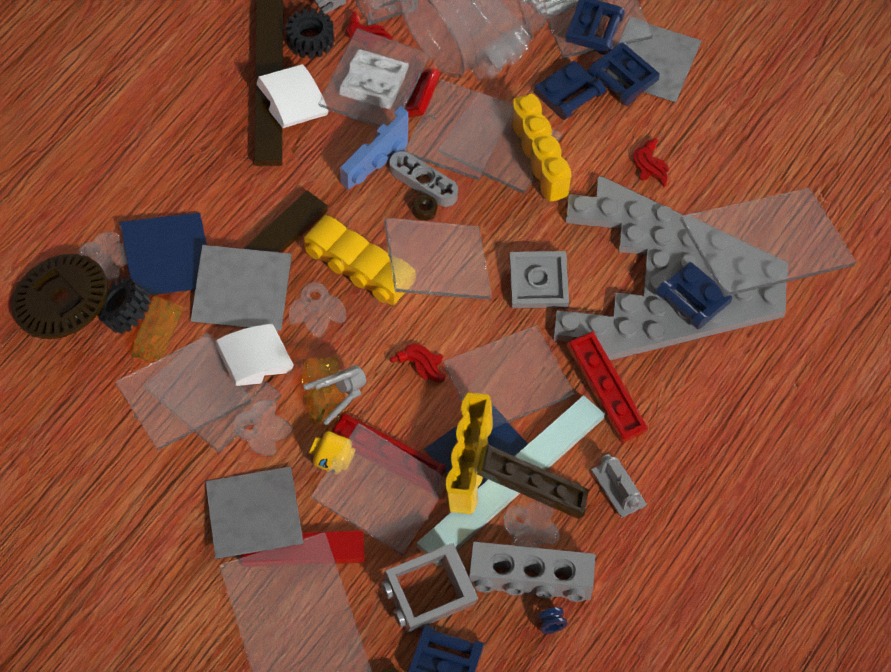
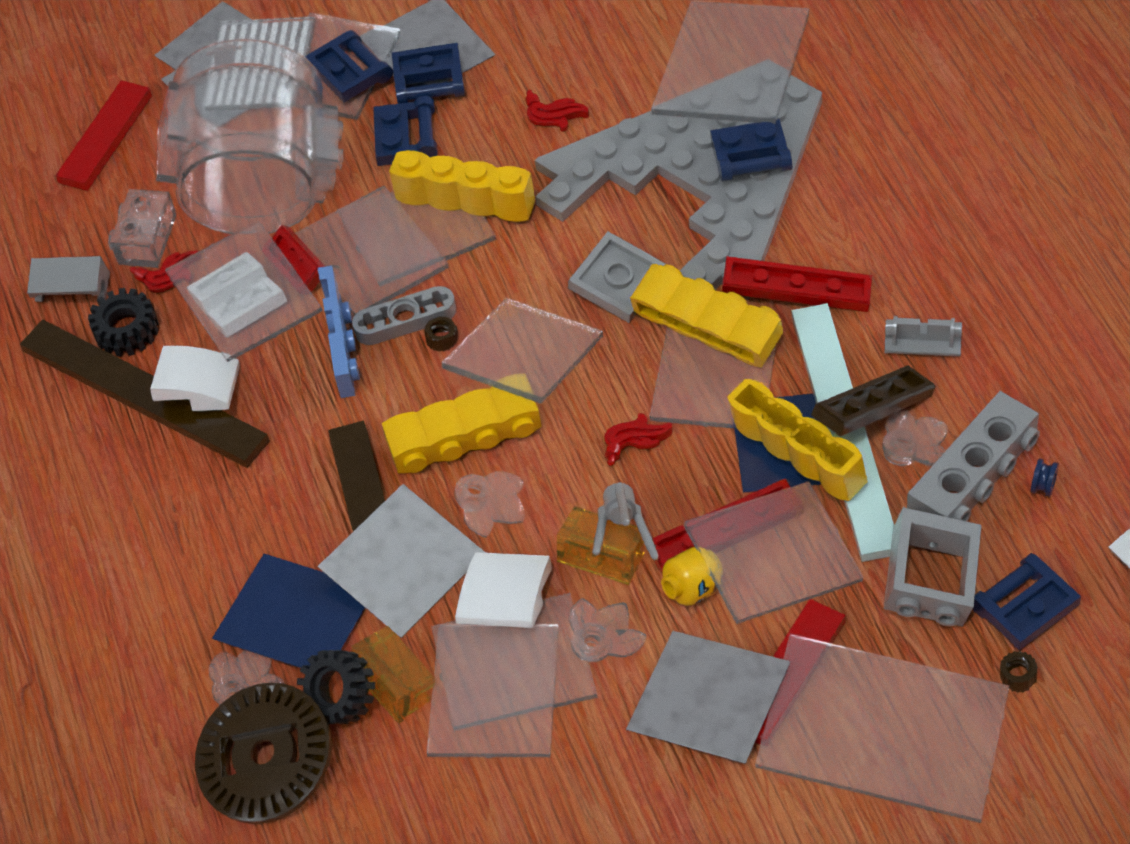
camera: 45 degrees left, 5 degrees down
(538, 348) = (707, 315): none -> yellow brick

